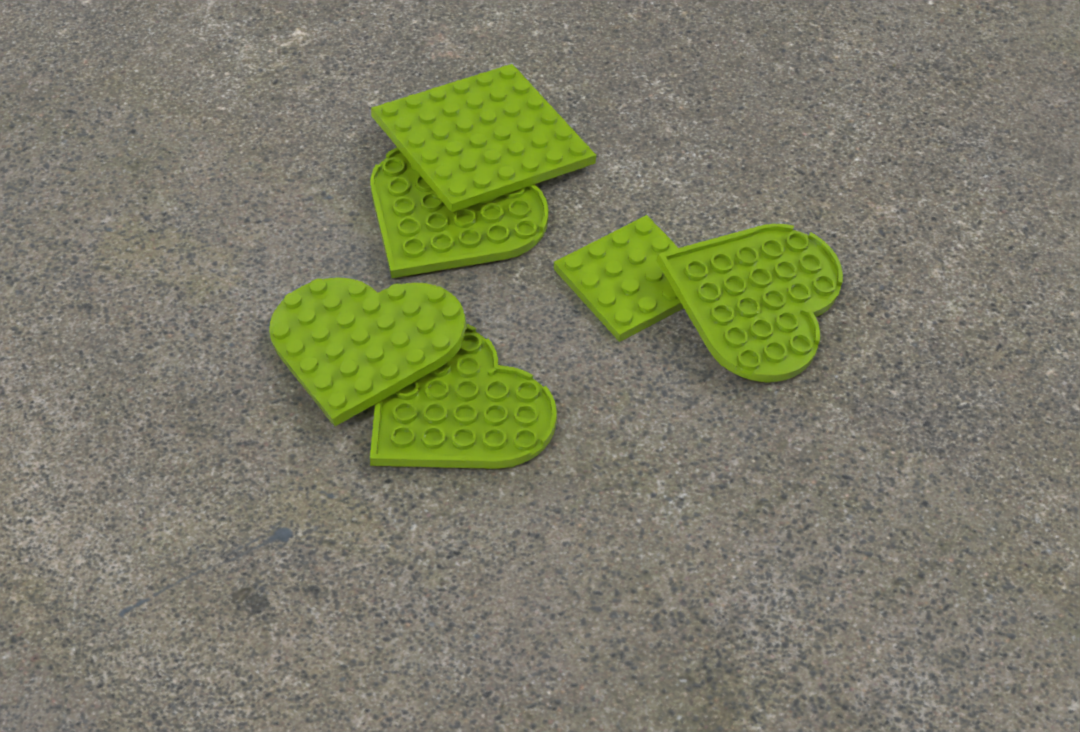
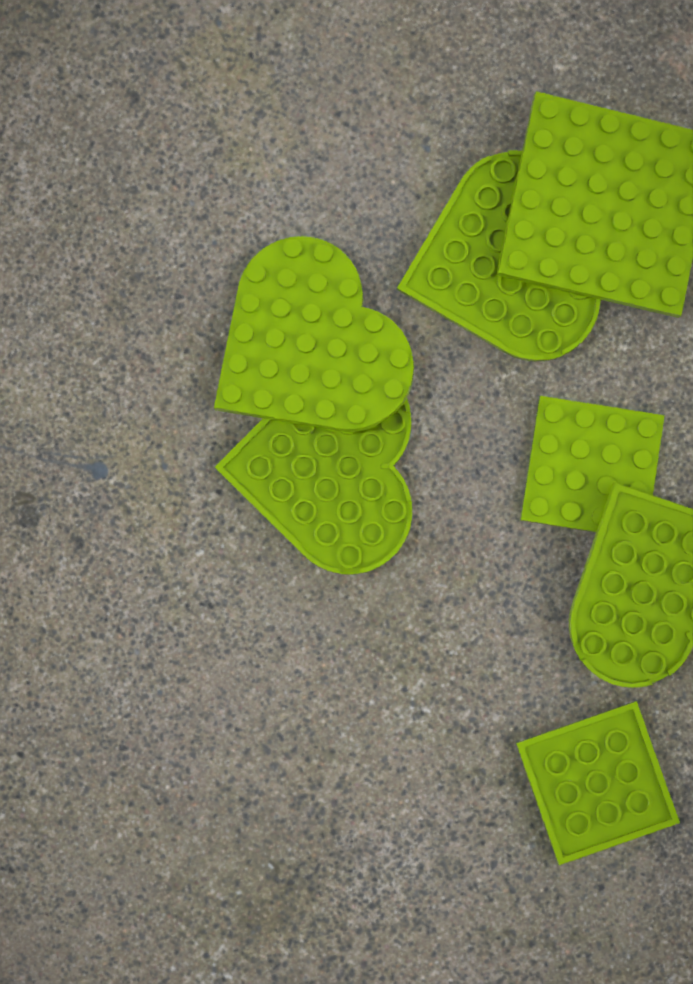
camera: 45 degrees right, 35 degrees up
(847, 439) = (597, 783): none -> lime plate

